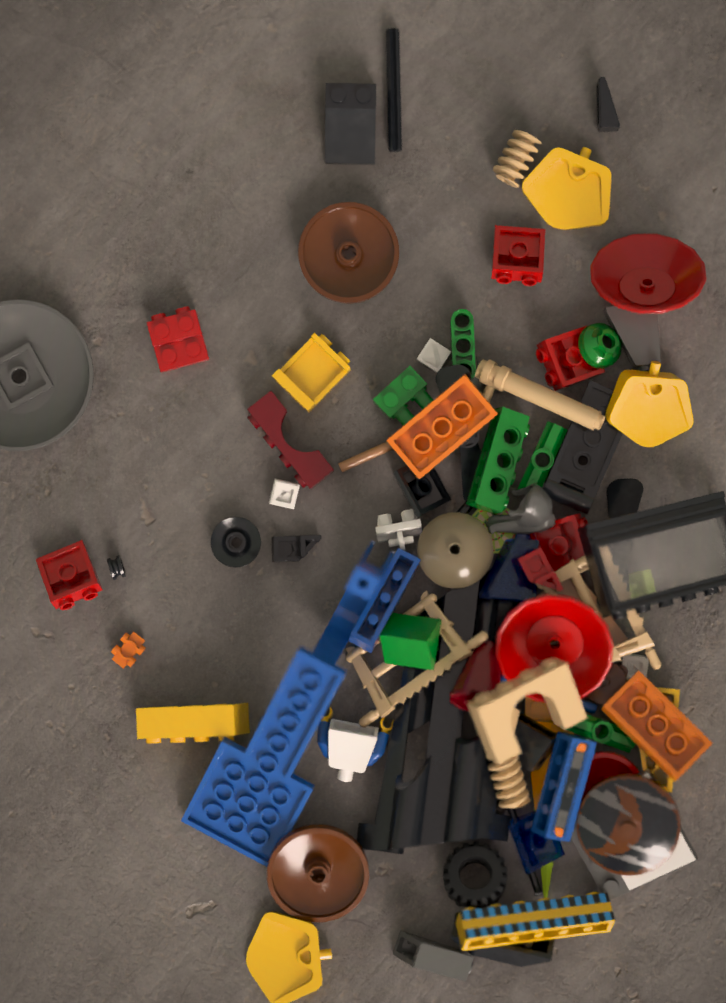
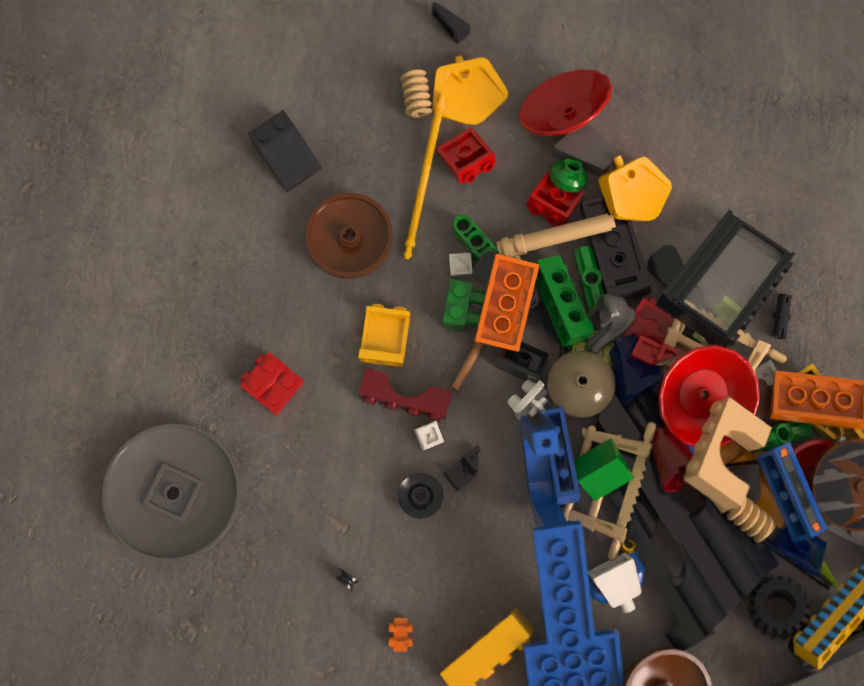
camera: 45 degrees left, 10 degrees down
(69, 575) = (316, 612): red plate -> none
(393, 90) = (298, 110): black axle -> none
(528, 188) = (410, 241): none -> yellow hose
(694, 626) = (782, 316): none -> black pin

